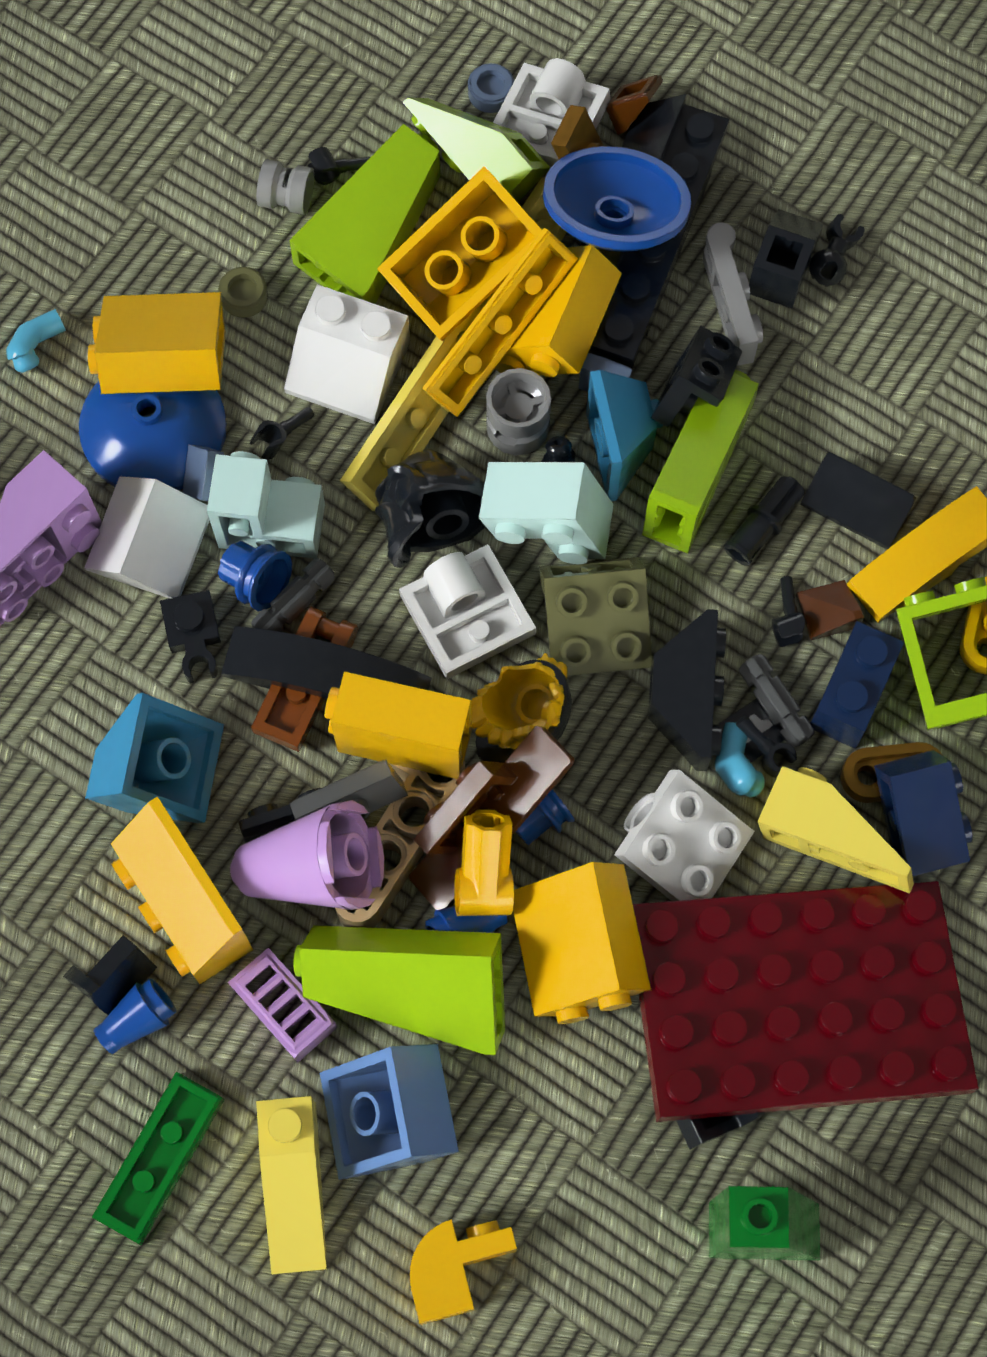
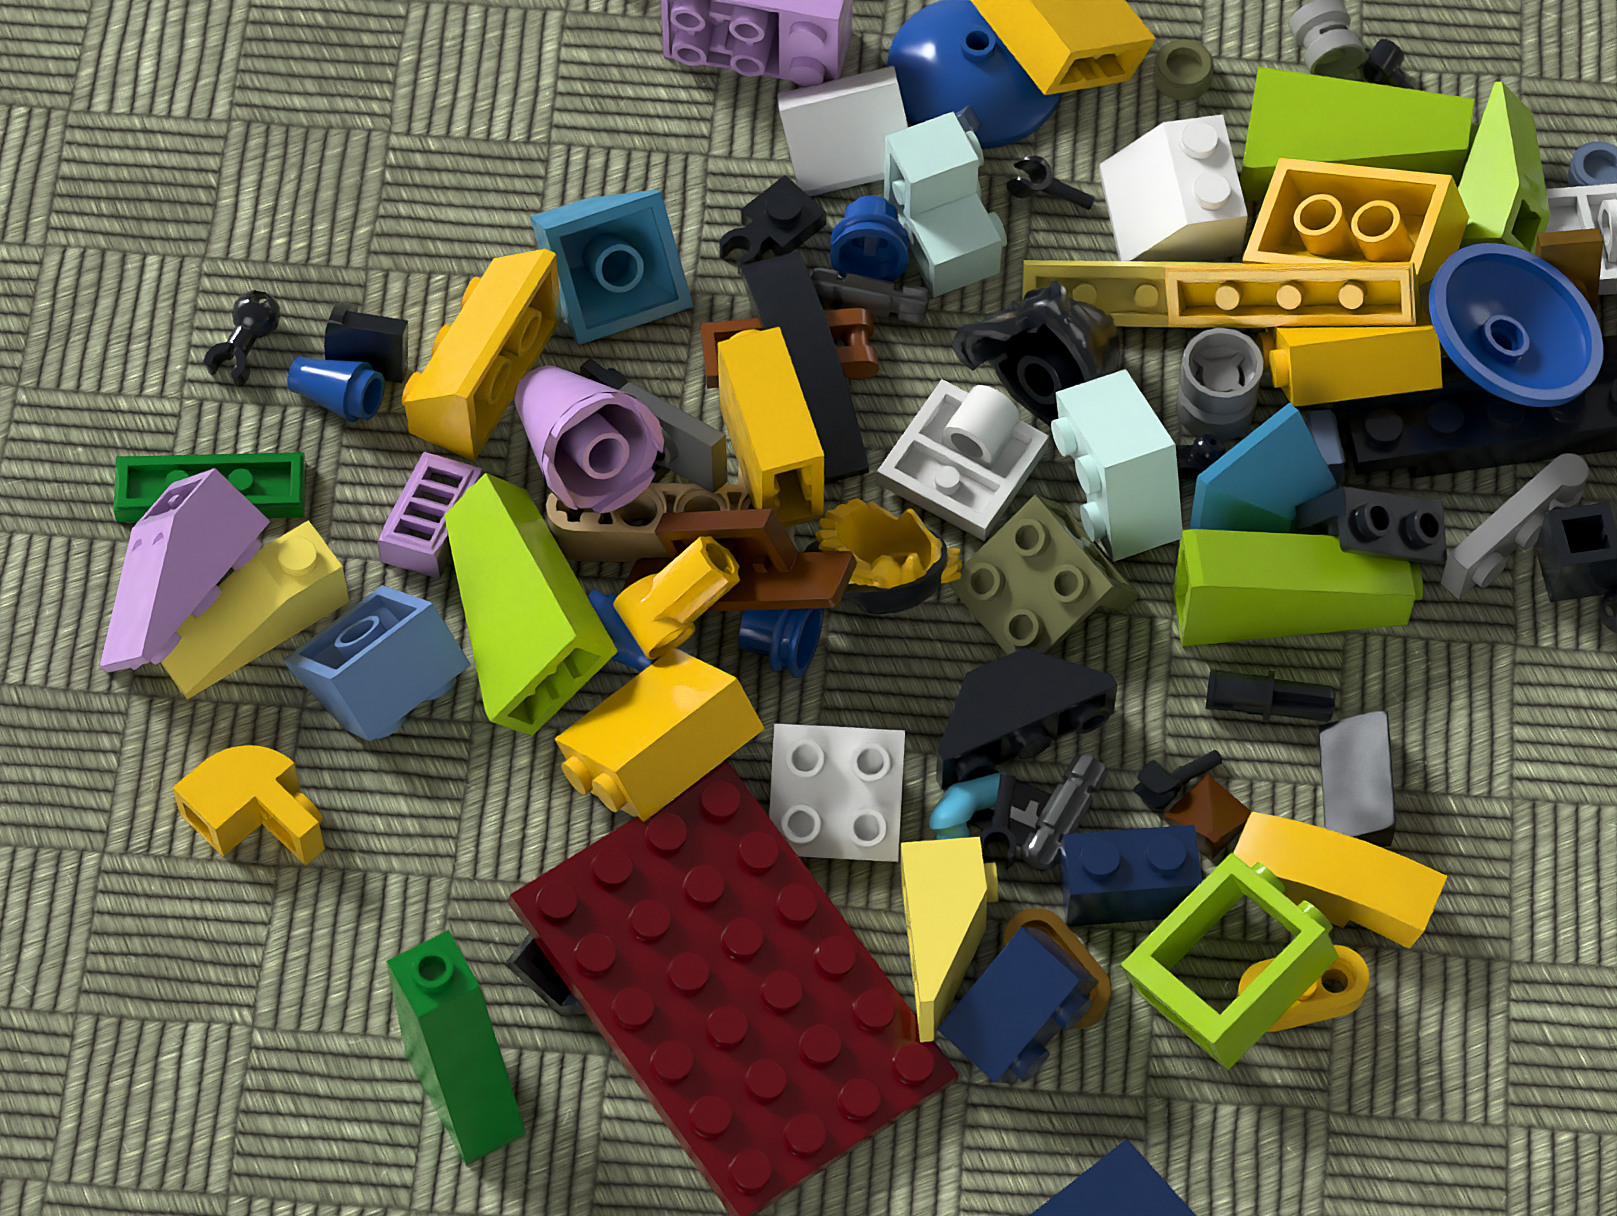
camera: 60 degrees right, 10 degrees down
(40, 1055) = (251, 322): none -> black arm
(235, 1226) = (174, 566): none -> lavender slope

